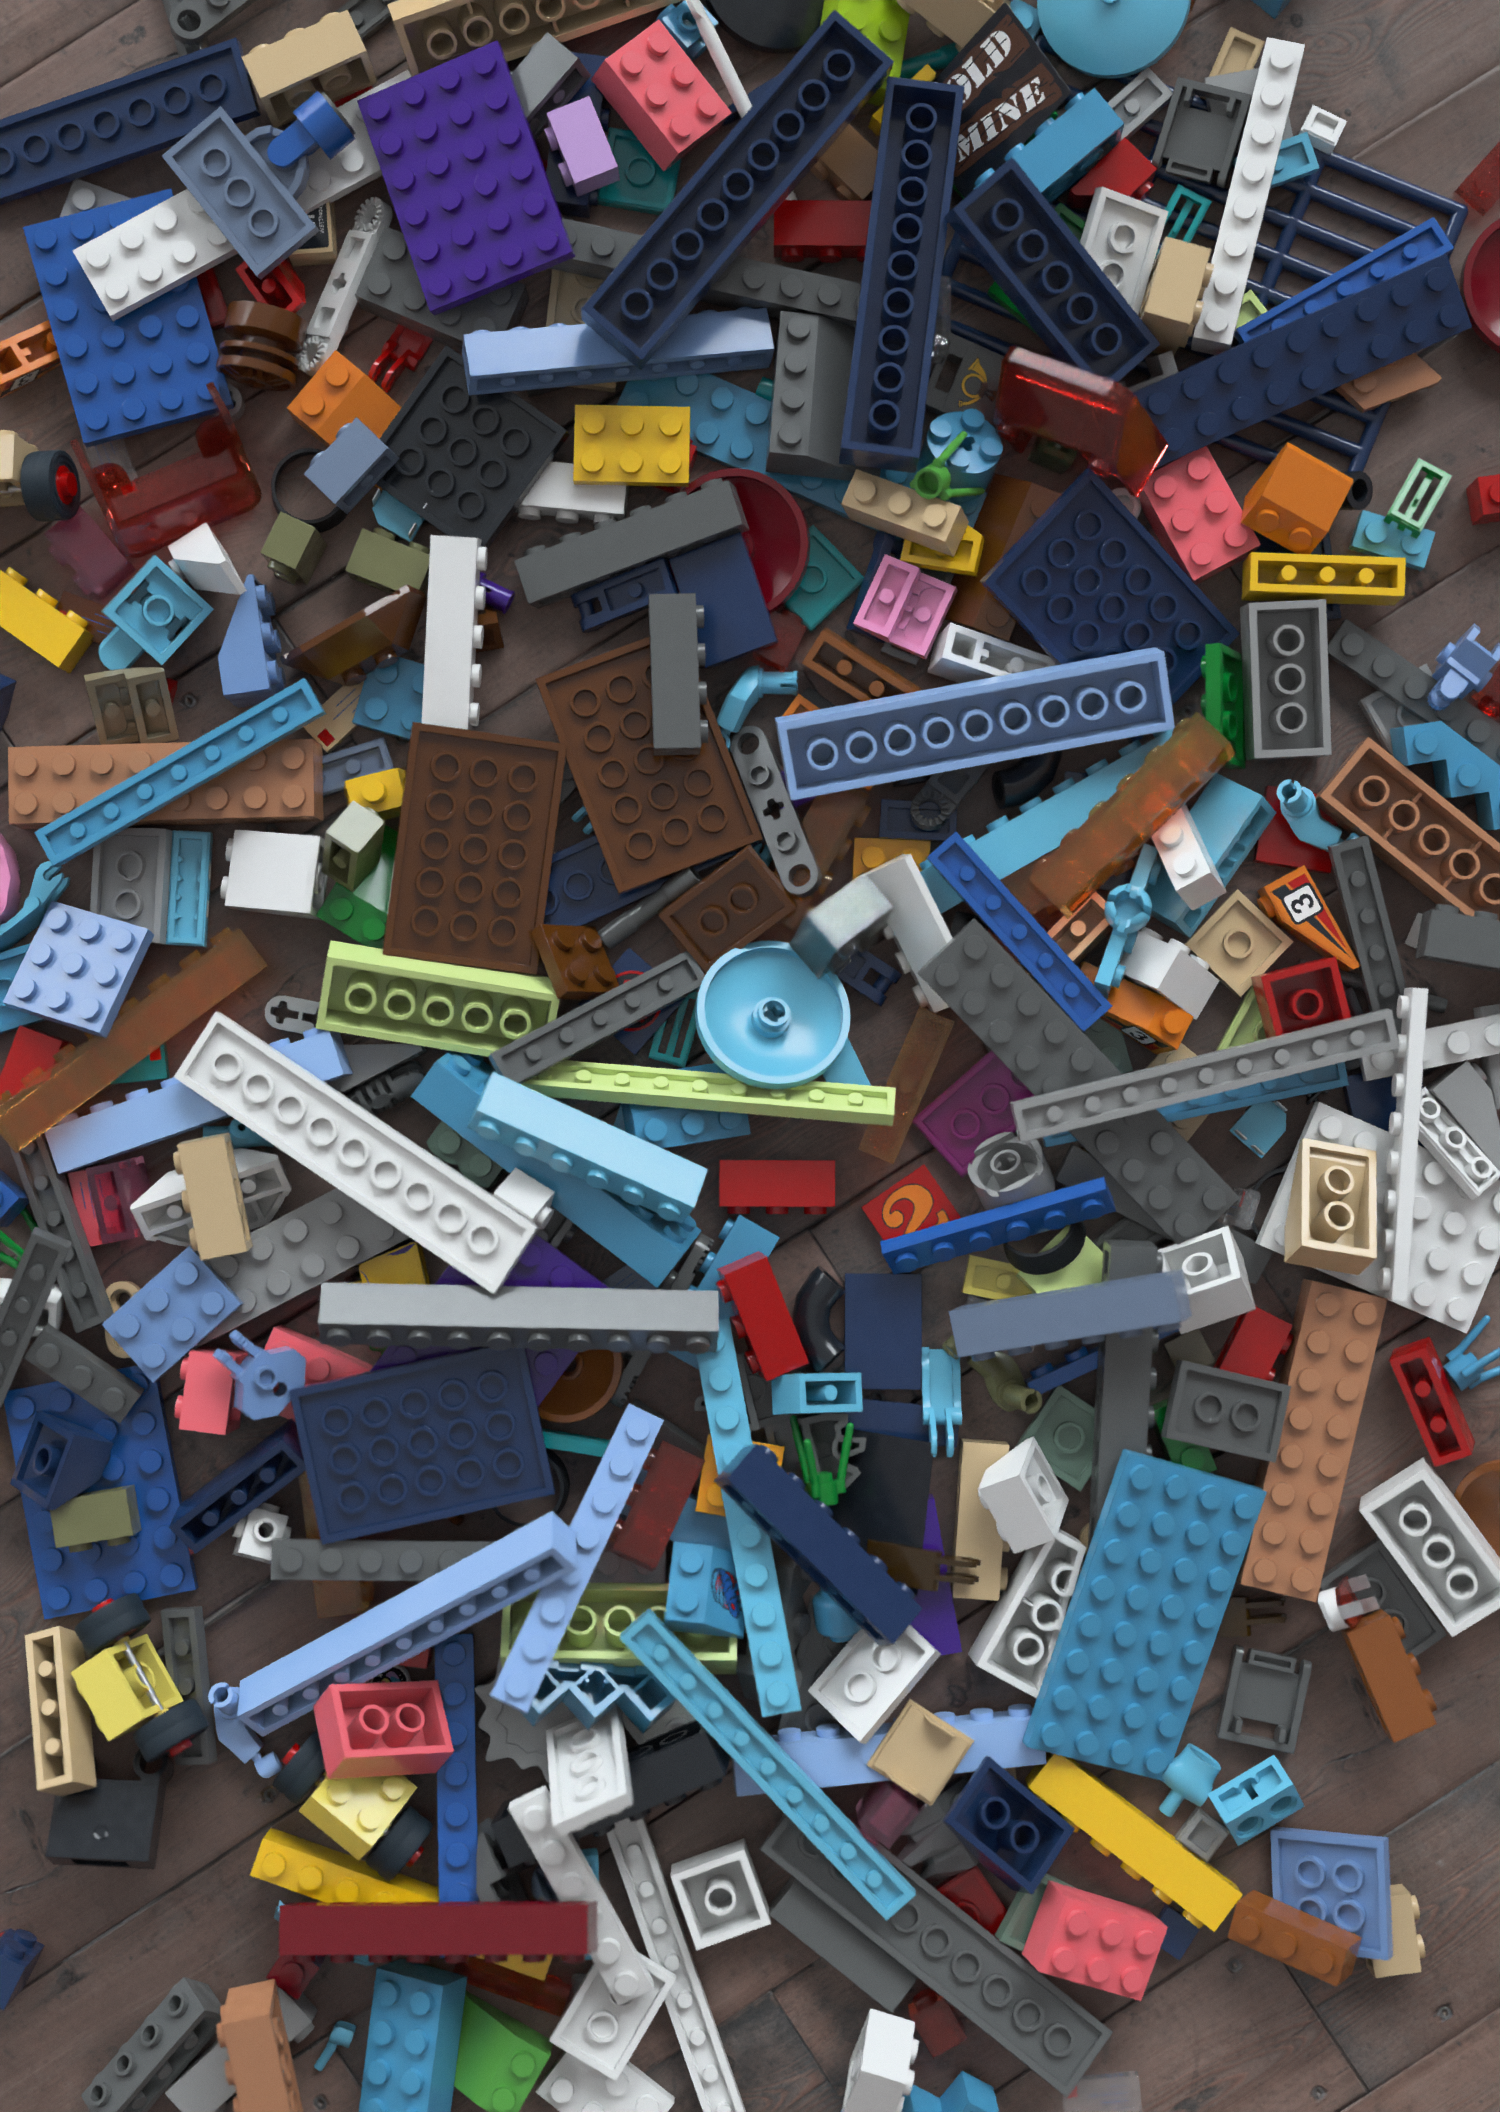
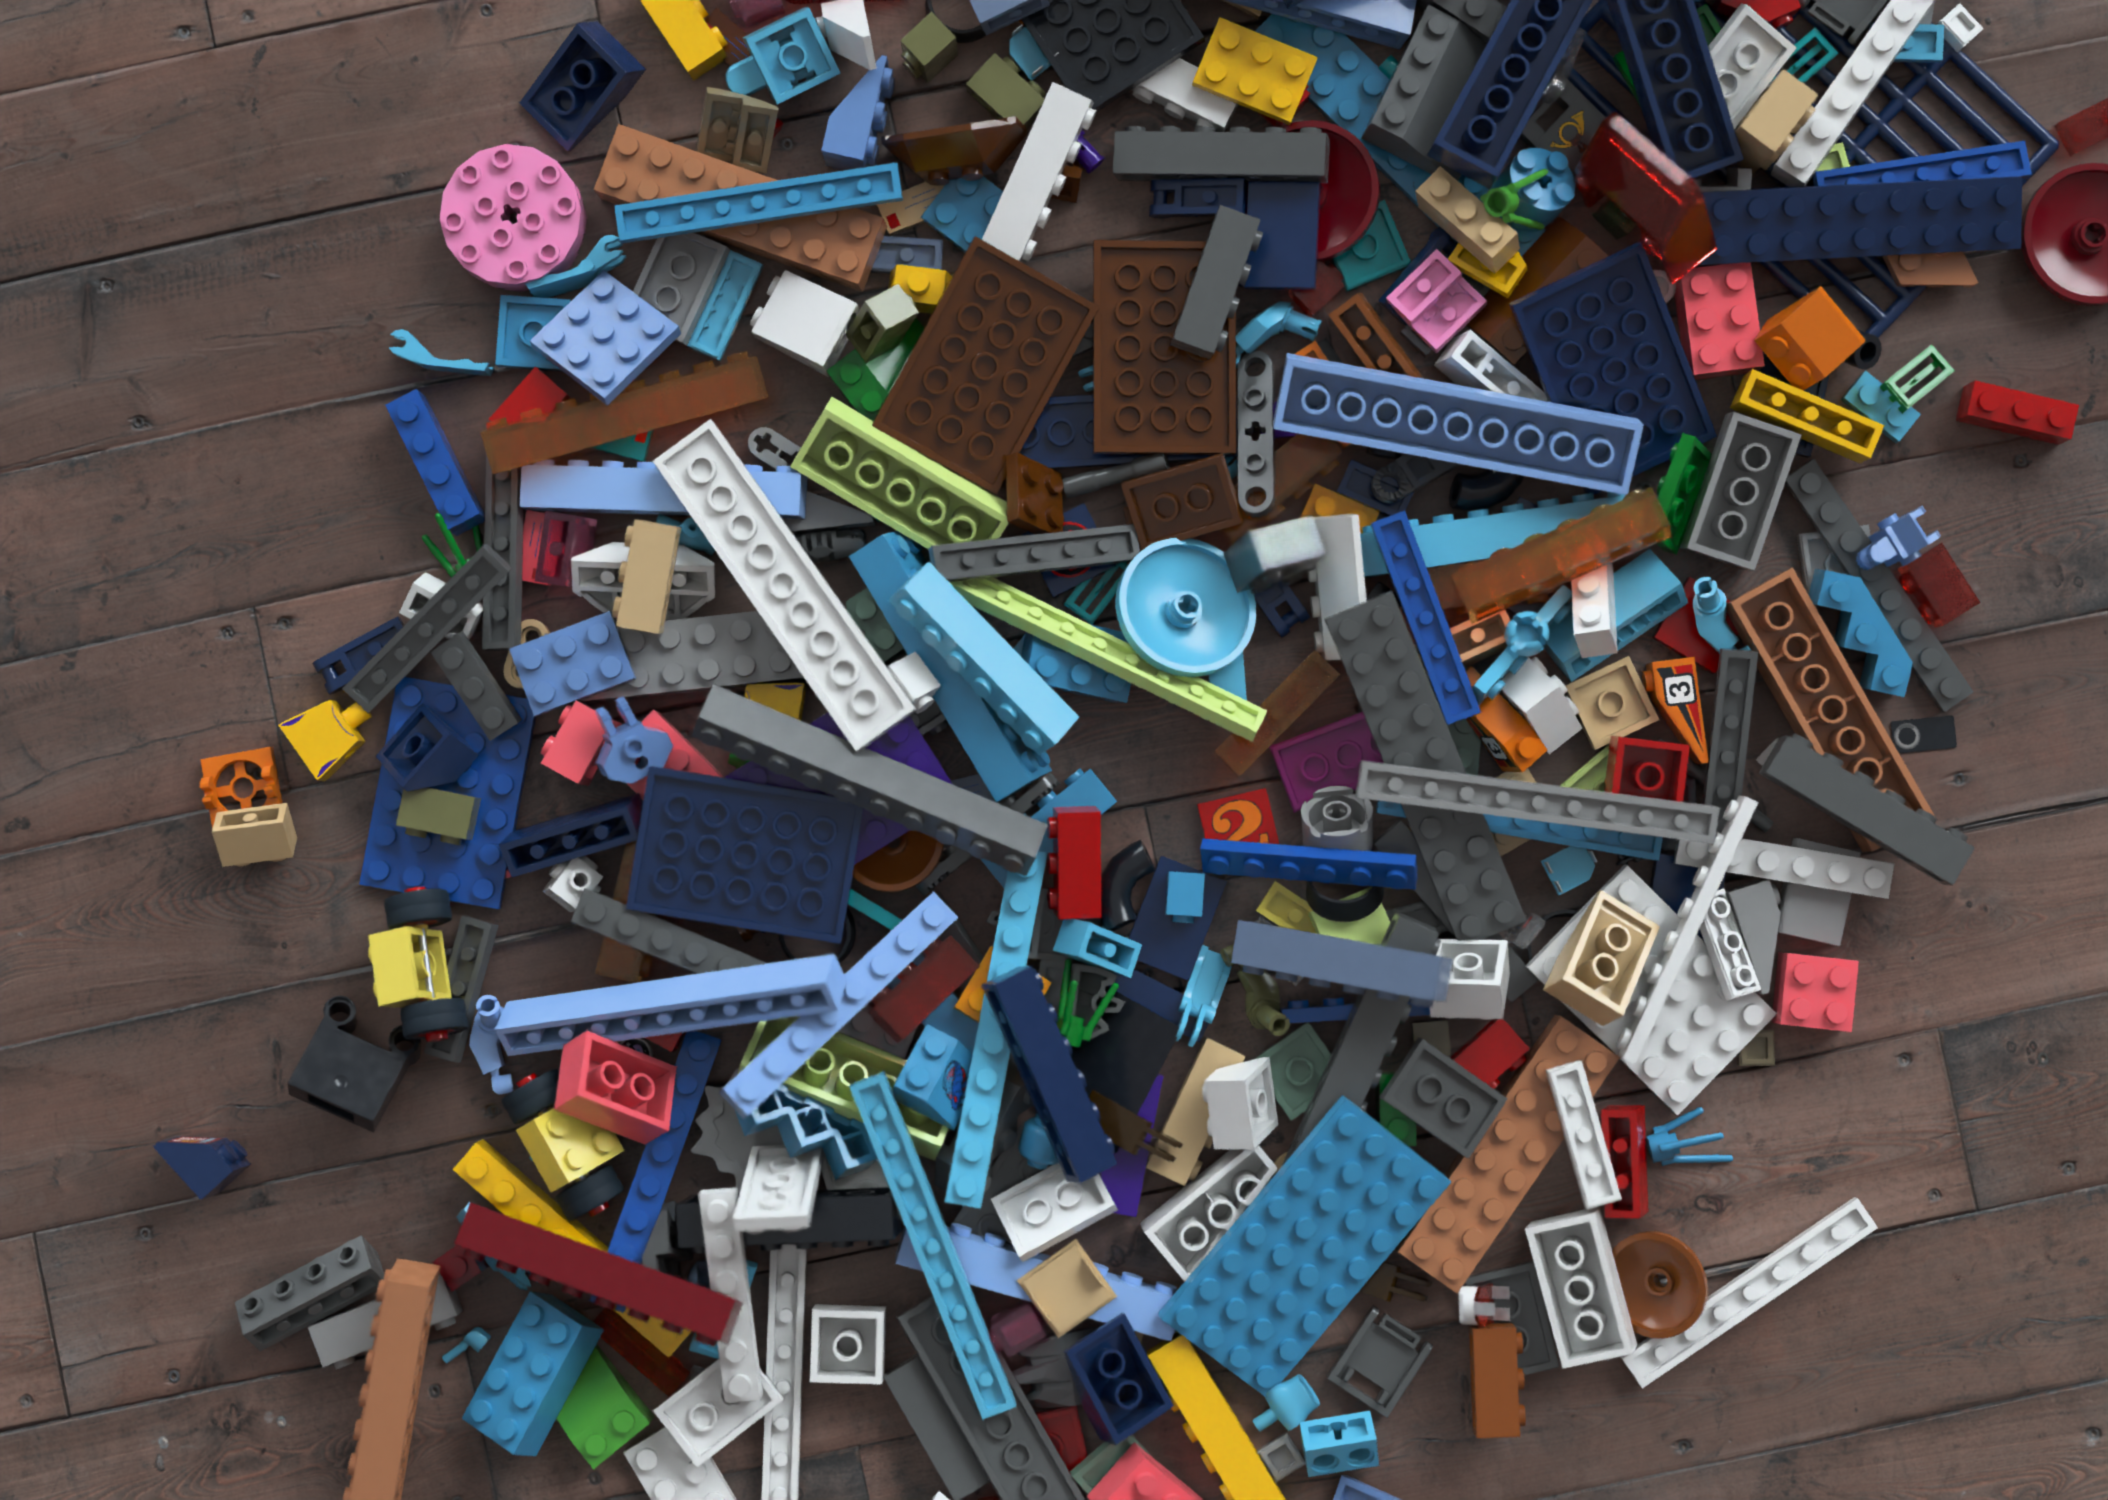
camera: 20 degrees right, 0 degrees up
(59, 1713) = (344, 966): tan brick -> none
(777, 1185) = (1132, 756): red brick -> none
(884, 1306) = (1184, 896): none -> dark azure brick
(1381, 1392) = (1583, 1134): none -> white tile

